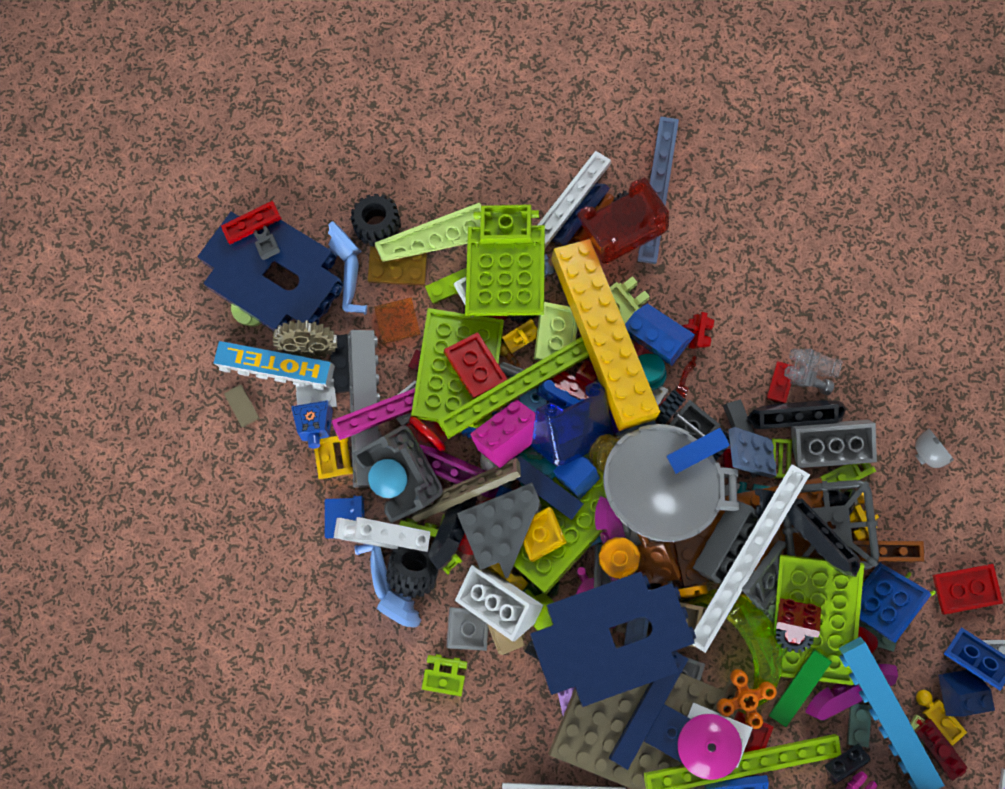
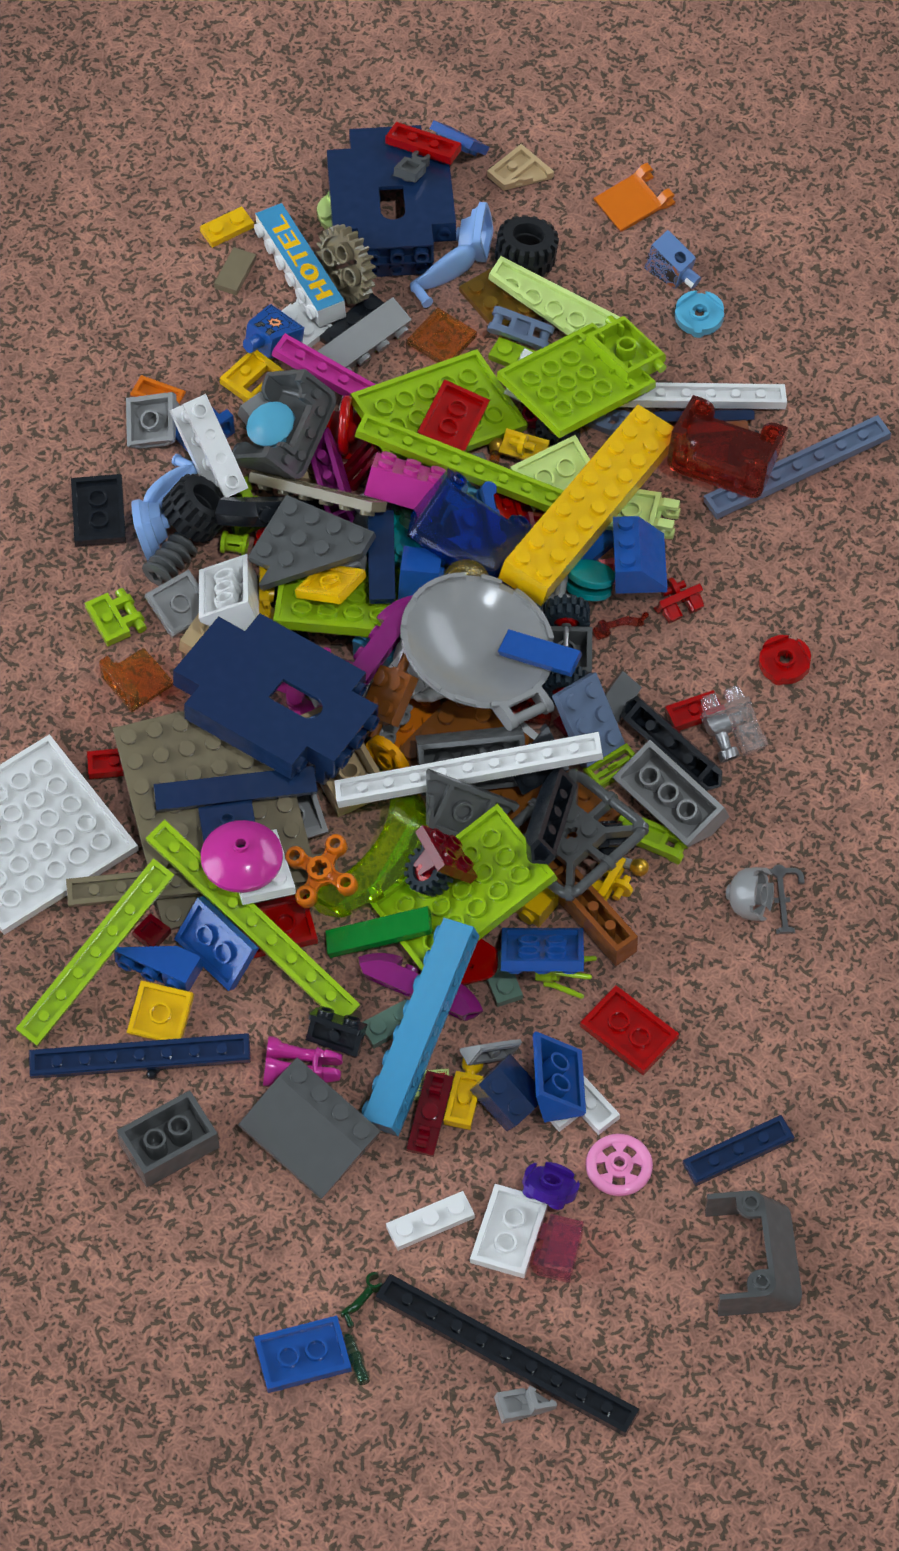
camera: 50 degrees right, 20 degrees down
(203, 385) = (227, 226): none -> yellow plate
(253, 198) = (468, 144): none -> blue plate
(296, 523) = (149, 386): none -> orange tile
(309, 177) = (519, 169): none -> tan wing
(317, 545) = (150, 420): none -> light grey slope
(356, 627) = (98, 510): none -> black plate
(387, 131) = (633, 199): none -> orange flag
(431, 610) = (168, 558): none -> dark grey piece
(432, 270) = (520, 328): none -> sand blue plate
(455, 453) = (359, 461): none -> dark red tile
(458, 145) = (672, 262): none -> medium blue torso
(501, 697) = (135, 678): none -> clear orange bracket
(506, 147) = (699, 325): none -> medium azure plate
(547, 764) = (104, 764): none -> red plate
(619, 557) = (367, 650): light orange tile -> none
(793, 297) = (780, 672): none -> red plate
(922, 419) = (779, 872): none -> flat silver piece
(928, 684) = (489, 1052): none -> light grey slope

